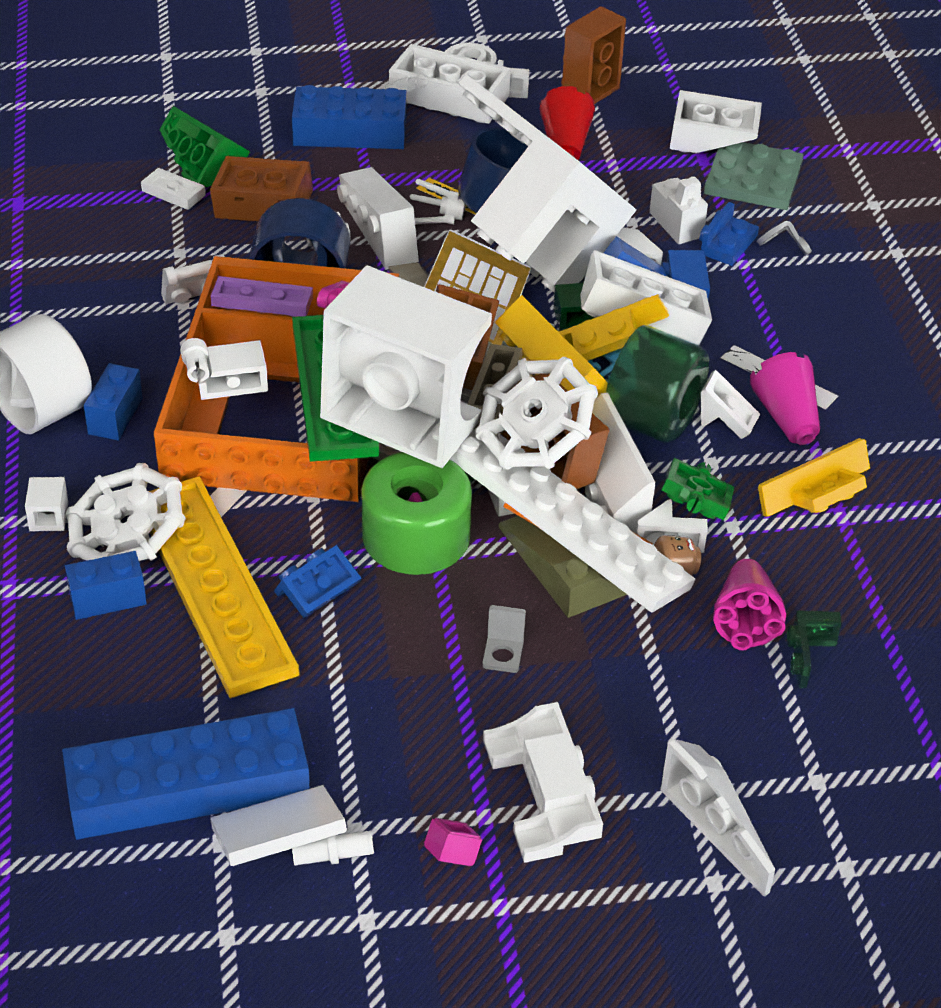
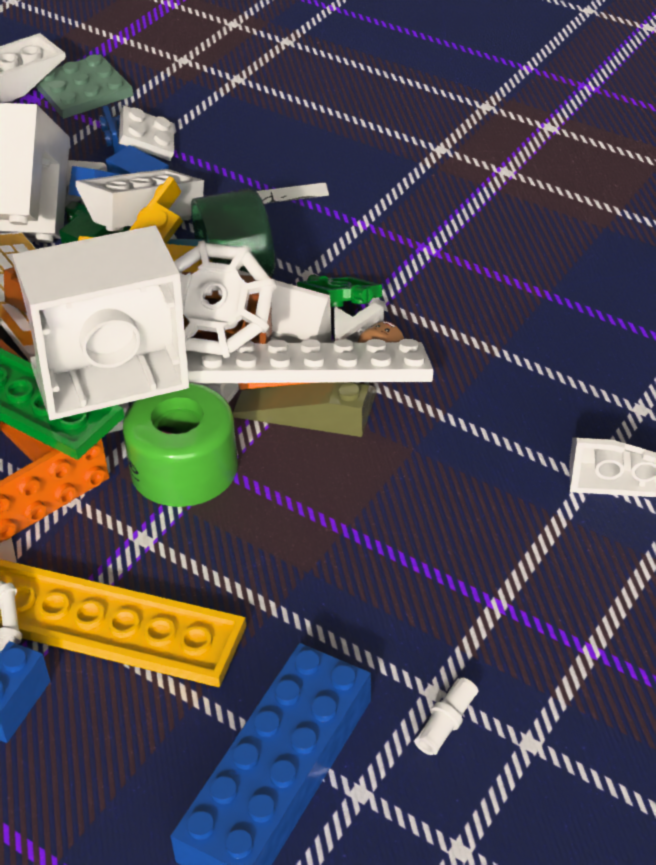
camera: 45 degrees left, 0 degrees up
(278, 825) = (393, 737): white tile -> none
(318, 581) = (167, 550): blue bracket -> none
(453, 841) = (510, 637): dark pink slope -> none
(506, 632) = (346, 476): light grey bracket -> none
(555, 777) = (519, 536): white bracket -> none
(679, 208) = (80, 127): white hinge -> none
(724, 401) = (287, 231): white slope -> none
(739, 249) = (146, 132): none -> white plate
(749, 607) = (469, 333): dark pink cone -> none
(788, 226) = (176, 106): light grey piece -> none
(789, 395) = (311, 197): dark pink cone -> none
(810, 629) = (521, 331): clear green bracket -> none
(818, 481) = (397, 237): yellow bracket -> none

